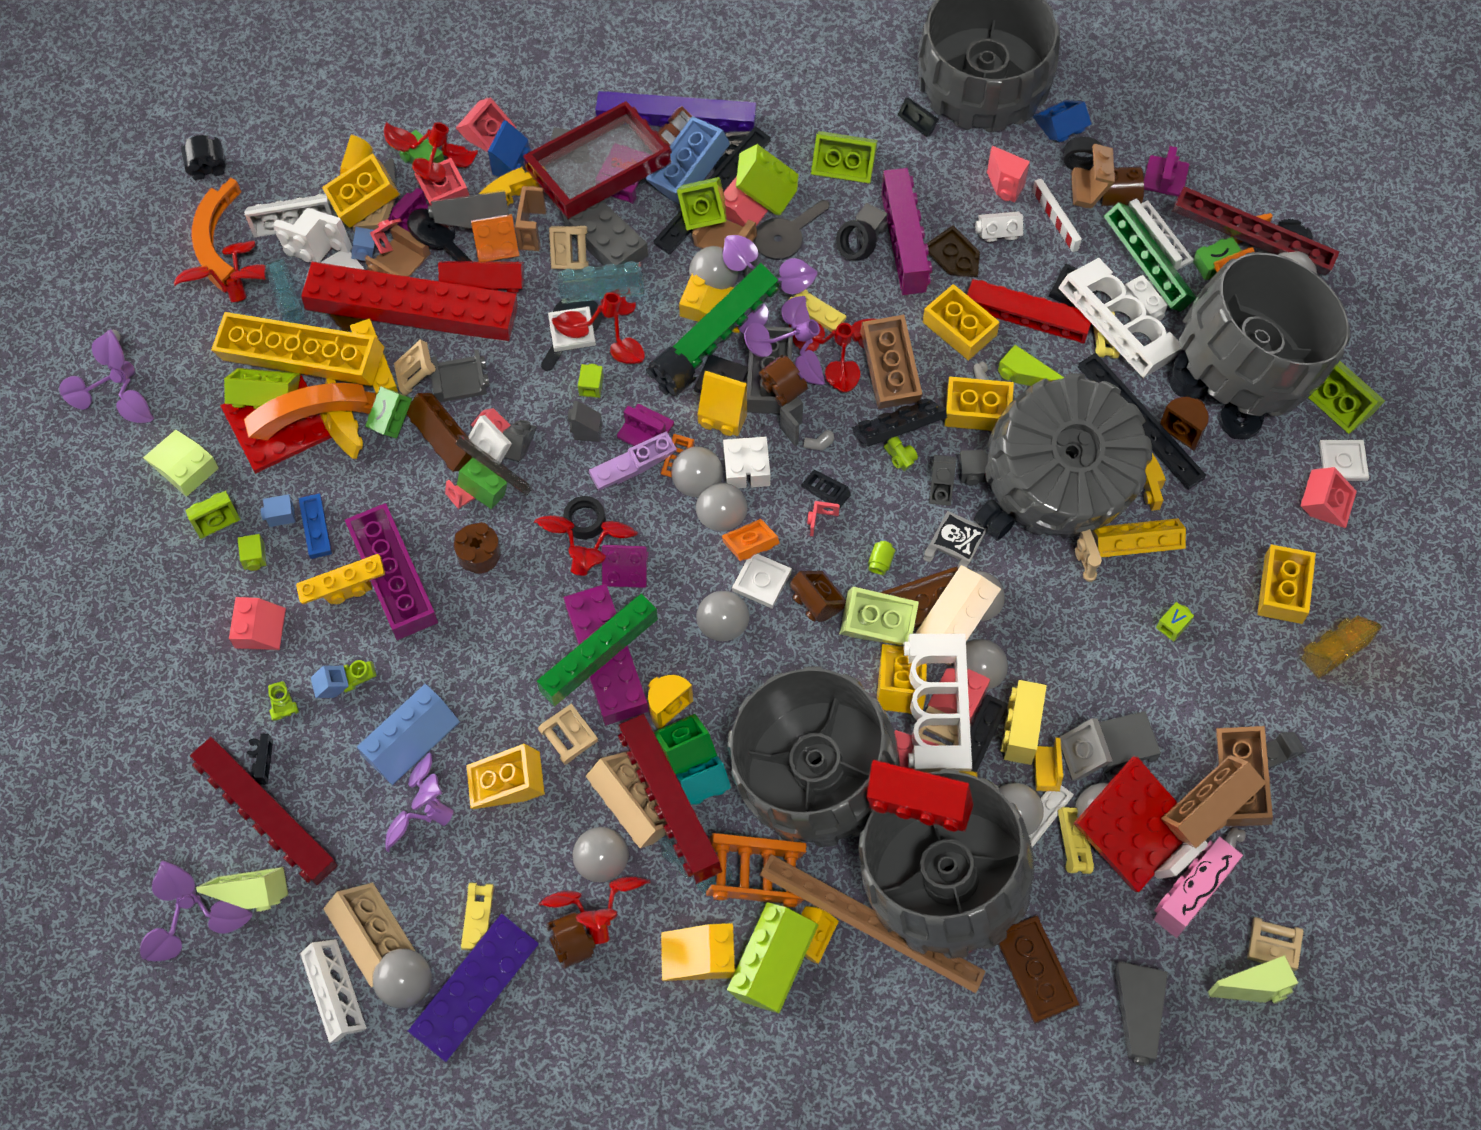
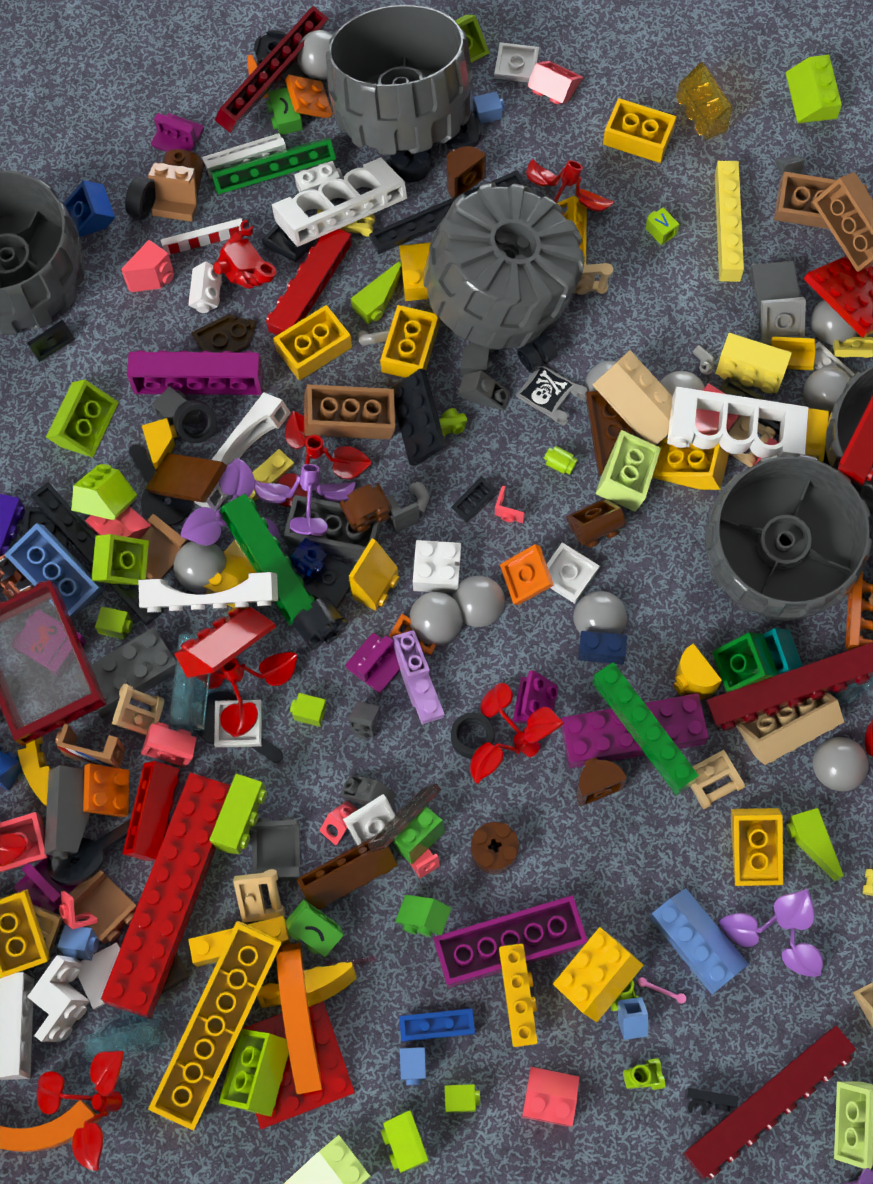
camera: 80 degrees left, 5 degrees up
(355, 727) = (681, 998): none -> bright pink hinge
(363, 435) = (354, 961): none -> clear pink piece
(363, 642) = (598, 974): none -> yellow brick
(406, 495) = (422, 915): none -> bright green brick
(481, 334) = (238, 815): none -> lime slope
(519, 828) = (814, 840): none -> lime slope
(540, 274) = (169, 745): none -> coral slope
(549, 623) = (599, 780): none -> reddish brown brick
(636, 292) = (223, 641): none -> red slope
(650, 217) = (113, 623): none -> lime brick
(676, 241) = (257, 588): none -> white arch
(686, 616) = (602, 647): none -> dark blue brick
(733, 351) = (308, 557): none -> clear blue brick
(792, 239) = (186, 477): none -> reddish brown tile
(830, 218) = (159, 439): none -> yellow slope
(872, 294) = (264, 416): none -> white arch
(1034, 677) = (706, 360): none -> light grey arm
(1035, 247) = (242, 262): none -> red torso
(1198, 686) = (729, 221): none -> light yellow brick
(1205, 497) = (570, 175): none -> red plant
(1275, 438) = (488, 107): none -> medium blue brick
(1396, 763) = (814, 90): none -> lime slope

